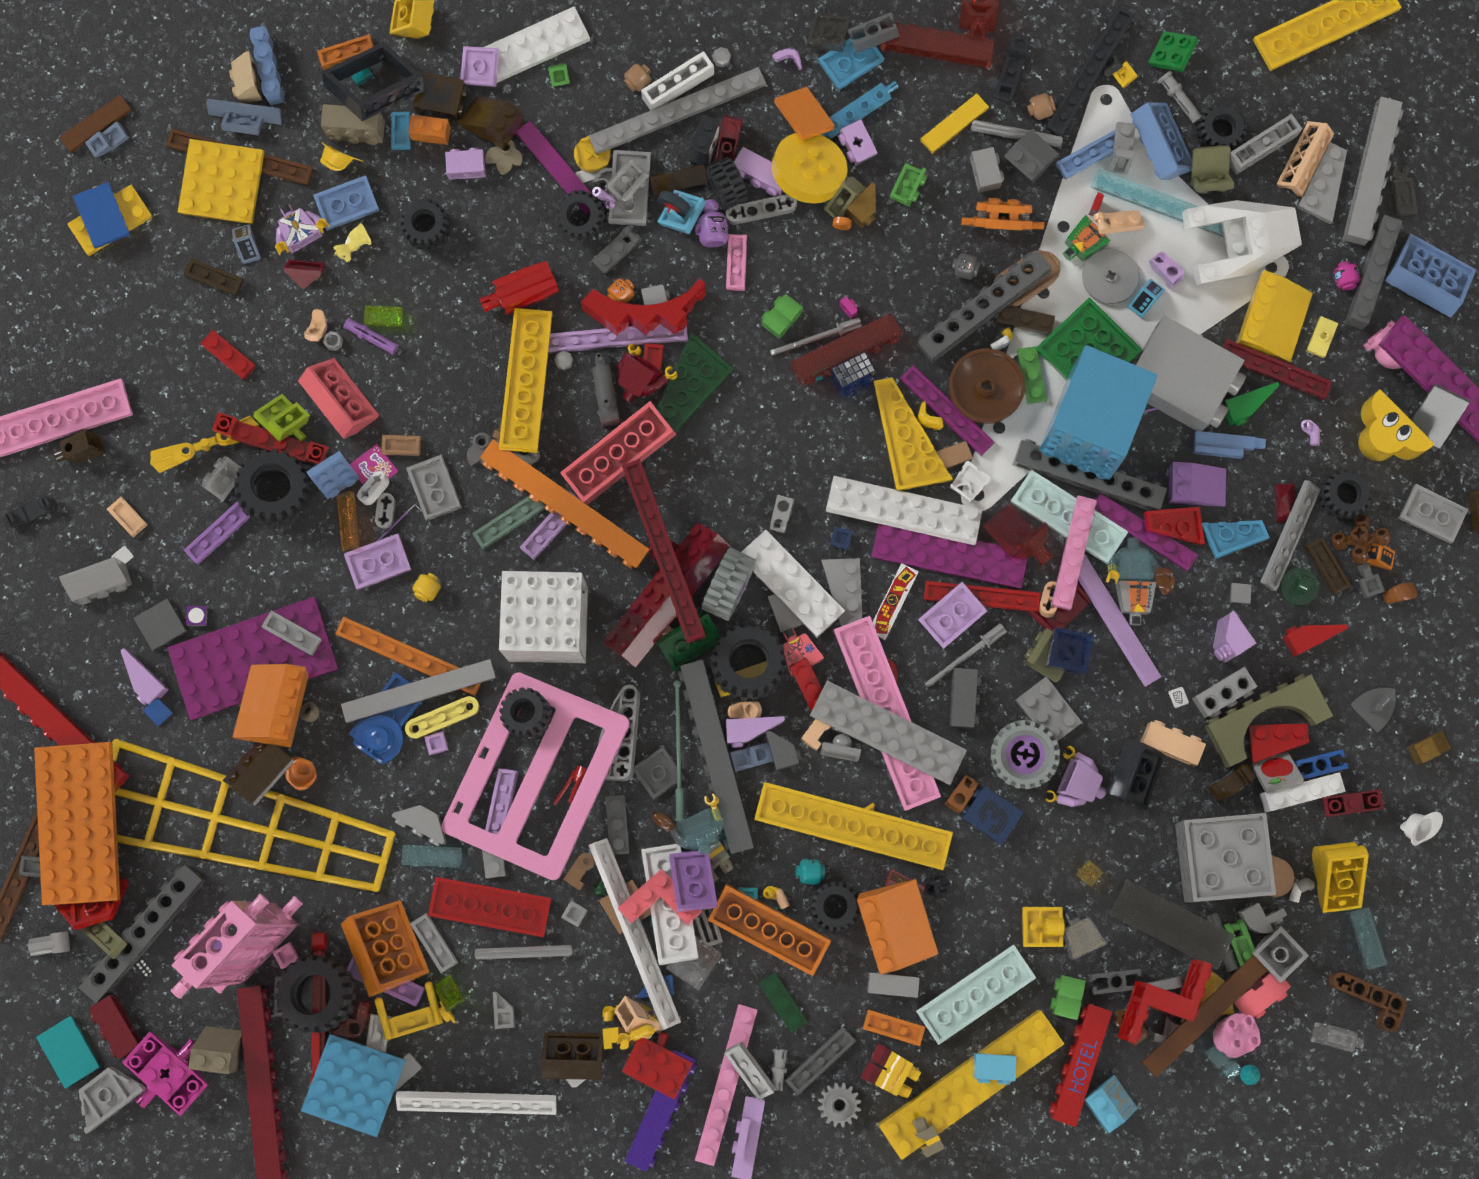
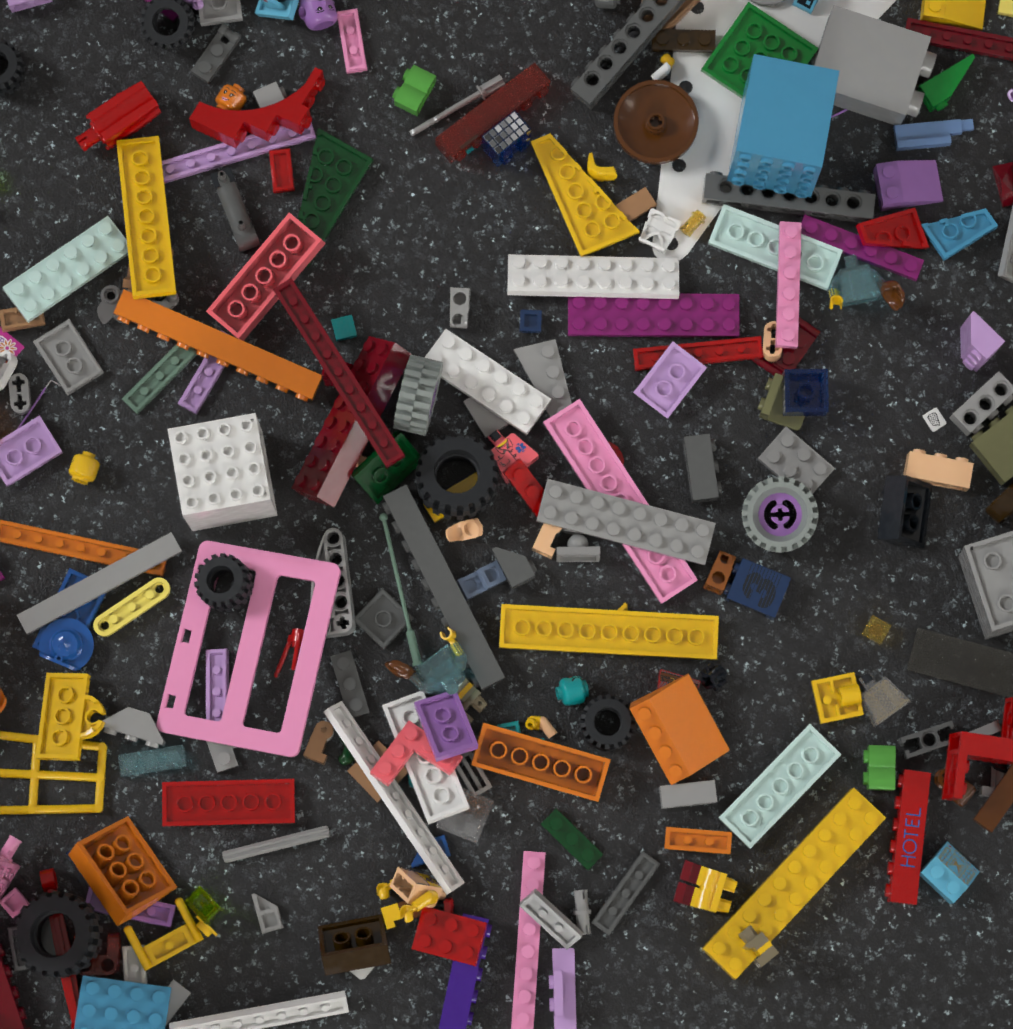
camera: 15 degrees left, 0 degrees up
(365, 802) = (67, 717): none -> yellow plate
(434, 943) = (175, 854): light grey tile -> none
(436, 743) = (131, 636): lavender tile -> none
(448, 411) = (67, 269): none -> light aqua plate
(563, 360) = (183, 187): light grey tile -> none
(574, 913) = (323, 790): light grey tile -> none
(640, 376) = (271, 187): dark red torso -> none
(677, 511) = (344, 328): none -> teal tile
(745, 730) = (470, 551): lavender slope -> none
(844, 1114) = (667, 940): light grey gear -> none
(849, 307) = (486, 65): dark pink plate -> none
(894, 600) = (602, 377): tile -> none
(944, 408) = (616, 157): magenta tile -> none
(987, 640) = (712, 400): light grey piece -> none
(994, 1067) = (815, 857): medium azure brick -> none
(1001, 481) = (693, 223): none -> clear yellow pin
(1018, 536) = (723, 279): clear red plate -> none
(1032, 374) = (700, 92): bright green plate -> none
(1079, 782) = (845, 532): lavender torso -> none
(1117, 624) = (851, 353): lavender tile -> none
(1135, 599) = (865, 322): torso -> none
(1240, 593) = (979, 293): light grey tile -> none

